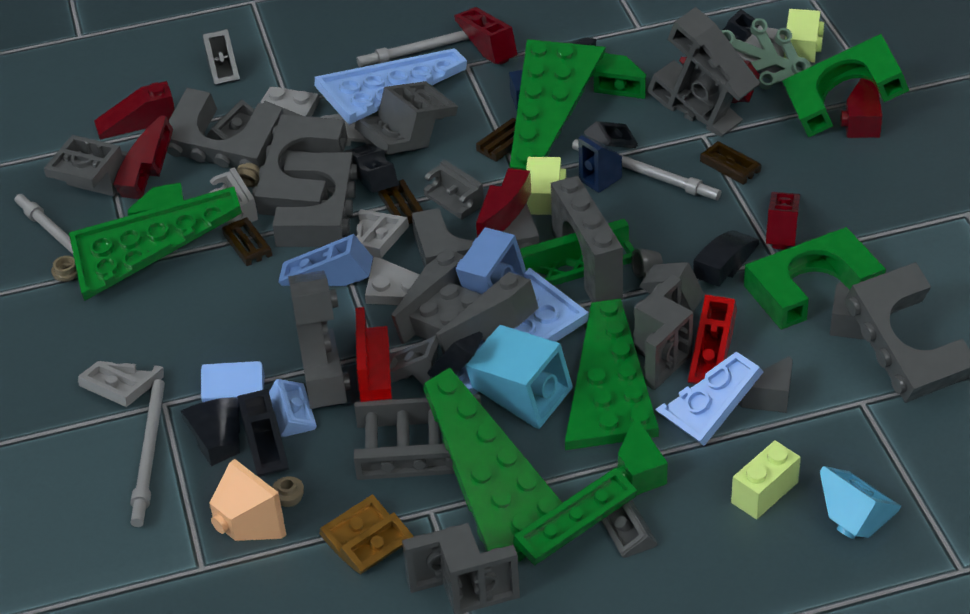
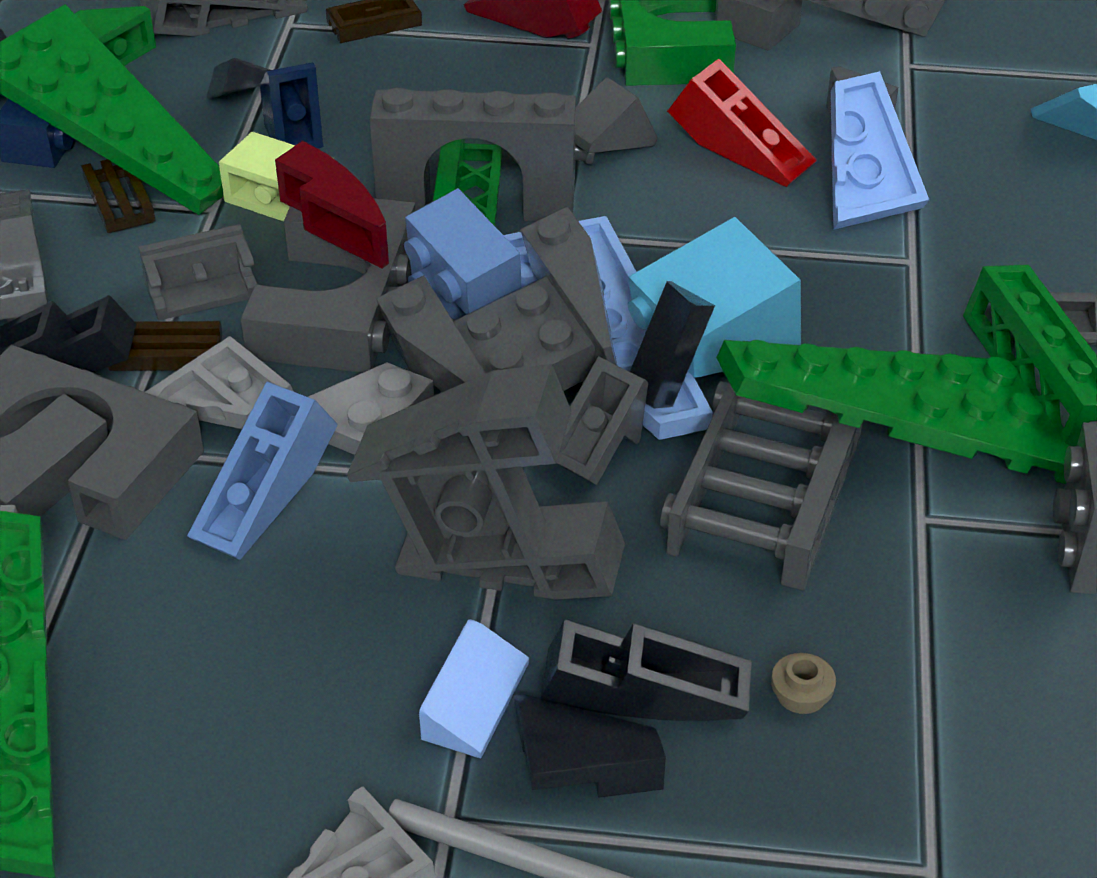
camera: 70 degrees left, 0 degrees up
(246, 506) = (847, 730): light nougat slope -> none
(264, 248) = (86, 582): dark brown tile -> none
(291, 407) = (547, 611): light blue slope -> none
(365, 534) = (956, 607): pearl gold slope -> none
(372, 360) = (612, 471): red fence -> none
(608, 383) = (826, 255): green wing -> none
(641, 460) = (935, 258): green slope -> none
(663, 331) = (716, 151): dark grey bracket -> none
(692, 185) = (397, 57): light grey bar -> none
(723, 257) = (574, 66): black slope -> none
(765, 479) = (1037, 164): yellowish green brick -> none

